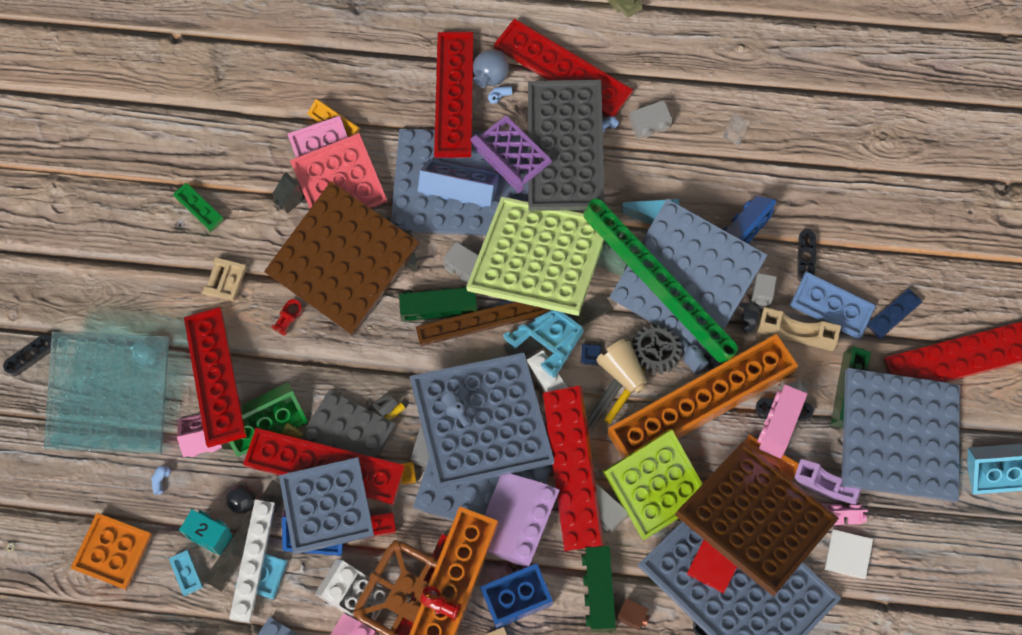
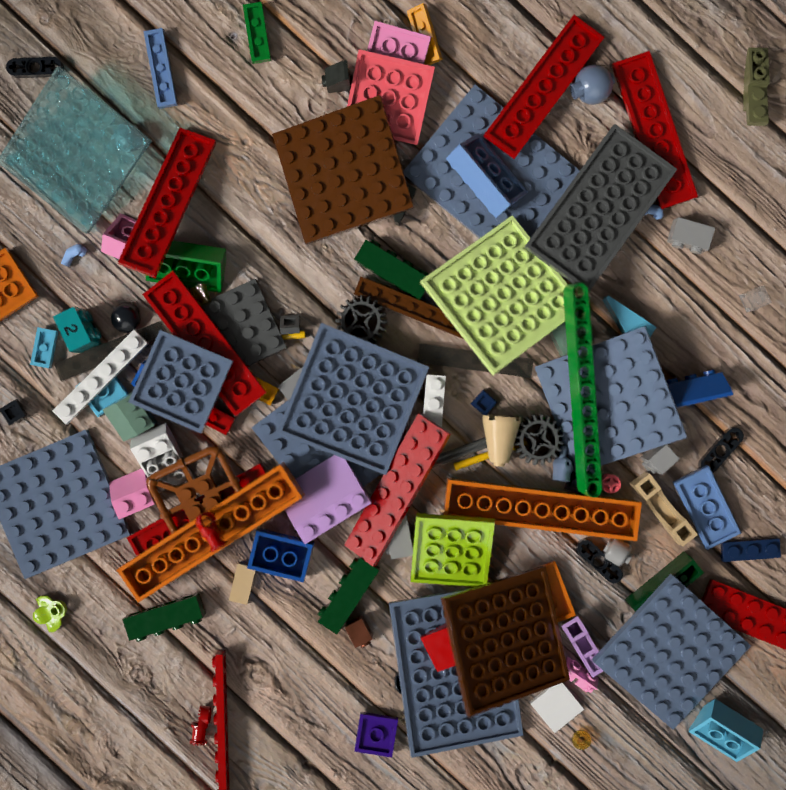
camera: 35 degrees right, 20 degrees up
(137, 285) = (160, 68): none -> medium blue plate
(229, 282) = (239, 121): tan plate -> none
(286, 317) = (263, 190): red connector -> none
(300, 576) = (128, 418): none -> sand green slope
(445, 345) = (375, 311): none -> dark grey gear
(455, 408) = (335, 374): sand blue piece -> none
(460, 261) = (438, 247): light grey brick -> none
(498, 92) = (583, 112): light blue arm -> none
(499, 164) = (532, 179): medium lavender fence -> none
(553, 331) = (465, 367): medium azure wing -> none
(744, 339) = (612, 485): none -> coral wheel
(751, 317) = (633, 470): black hair -> none
(781, 421) = (587, 577): bright pink brick -> none
(898, 565) = (584, 744): none -> clear yellow plate

